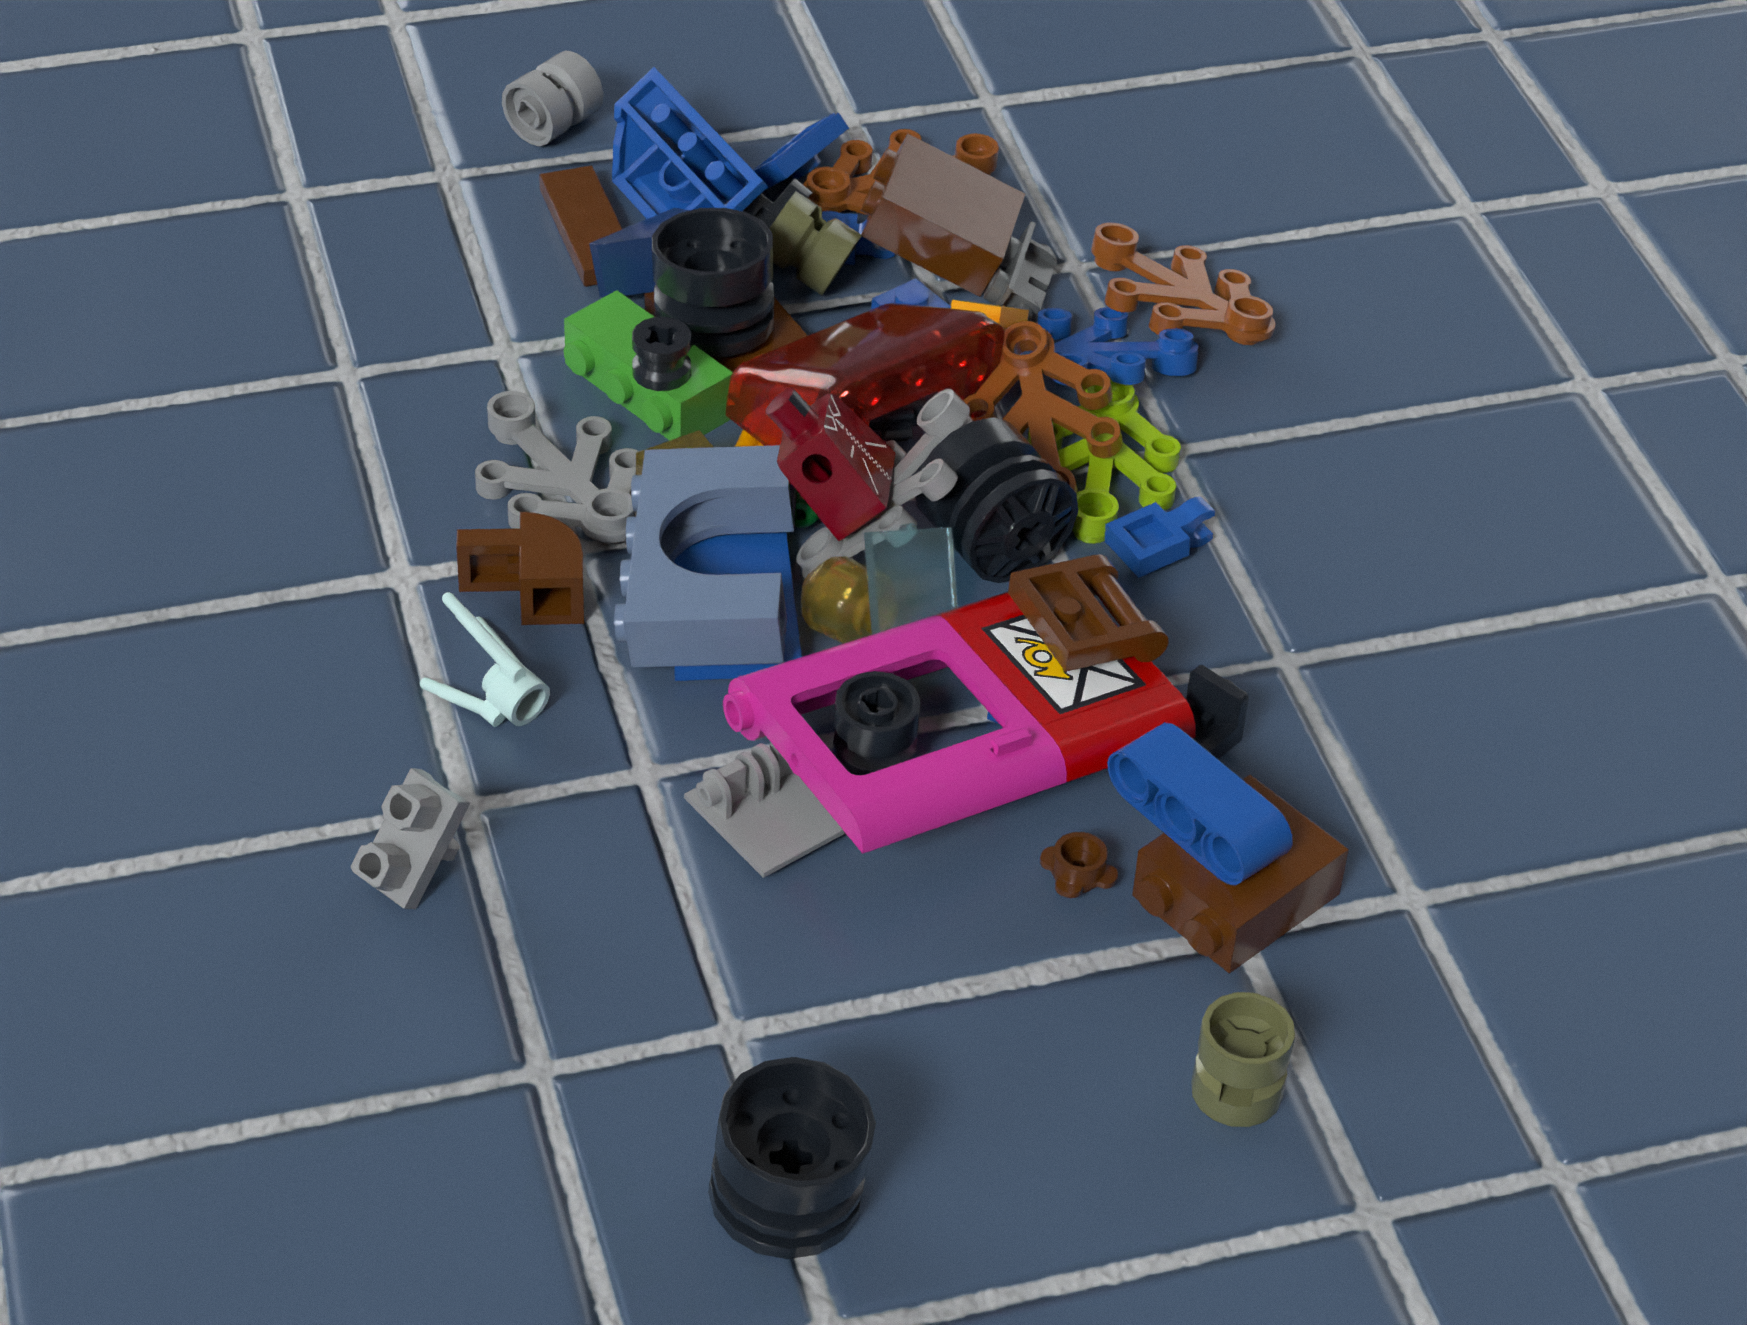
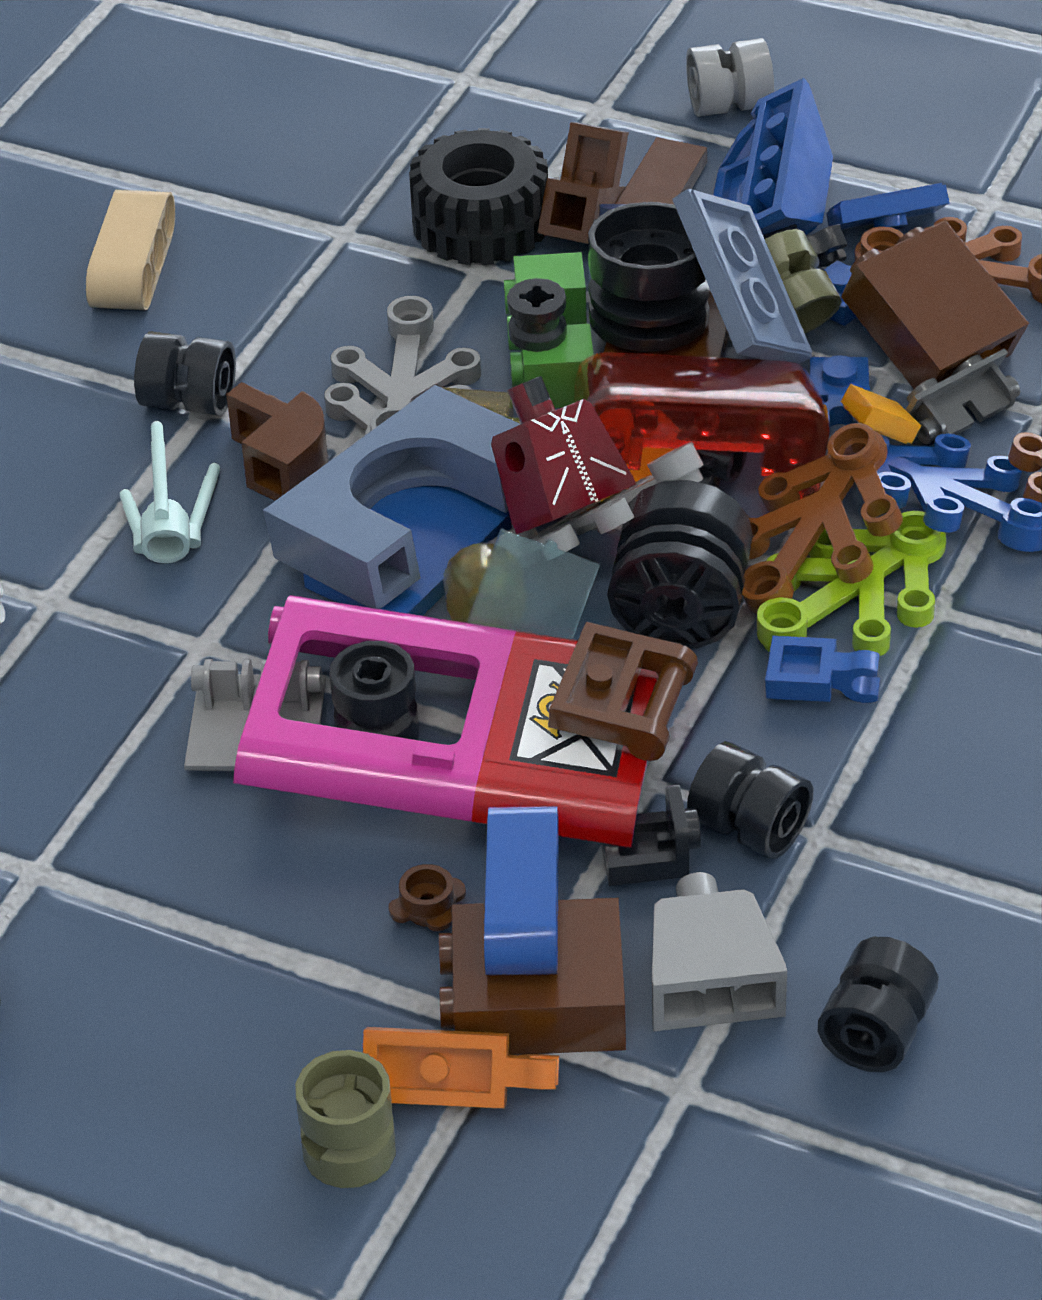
camera: 45 degrees right, 0 degrees up
(185, 469) = (130, 250): none -> tan beam
(359, 557) = (176, 372): none -> black wheel
(460, 284) = (478, 196): none -> black tyre
(542, 243) = (587, 179): none -> reddish brown brick
(809, 244) = (742, 277): none -> sand blue tile
(1244, 652) = (743, 795): none -> black wheel
(1271, 965) = (456, 1066): none -> orange plate
(1343, 779) = (713, 958): none -> light grey torso
(1494, 750) = (878, 1004): none -> black wheel

